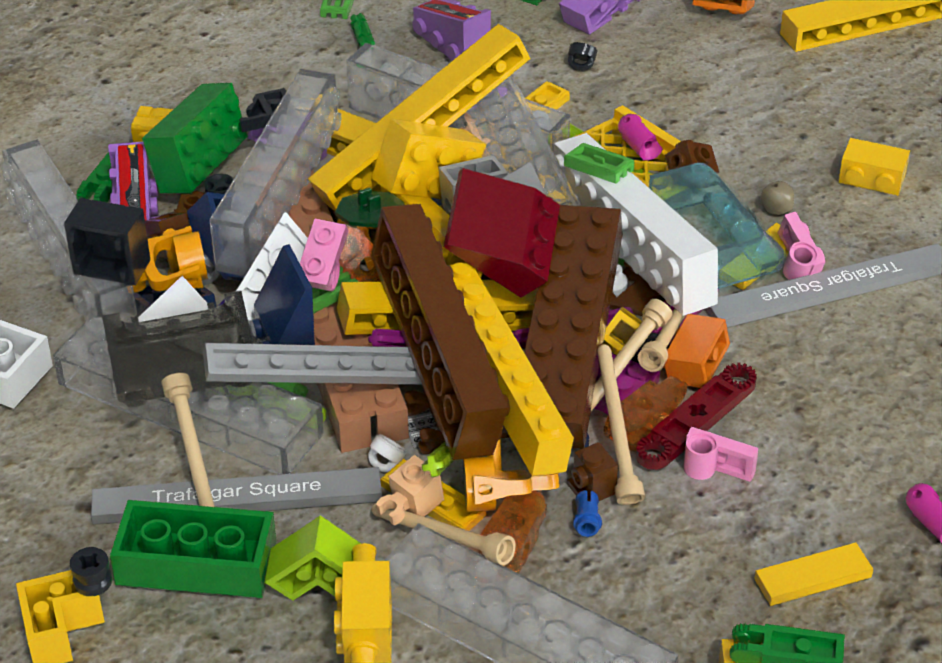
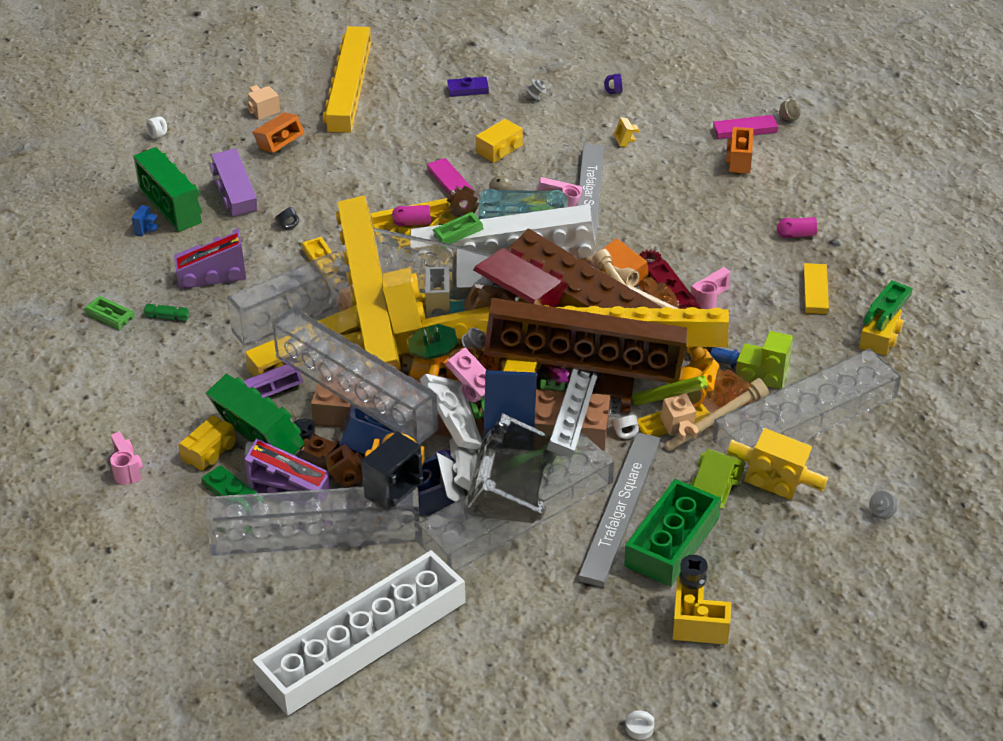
camera: 65 degrees left, 0 degrees up
(108, 88) = (123, 462): none -> bright pink plate
(178, 389) = (544, 488): tan piece -> none
(261, 109) = (250, 370): black wing -> none
(588, 555) = (766, 362): none -> lime brick
(764, 156) = (446, 175): none -> dark pink tile

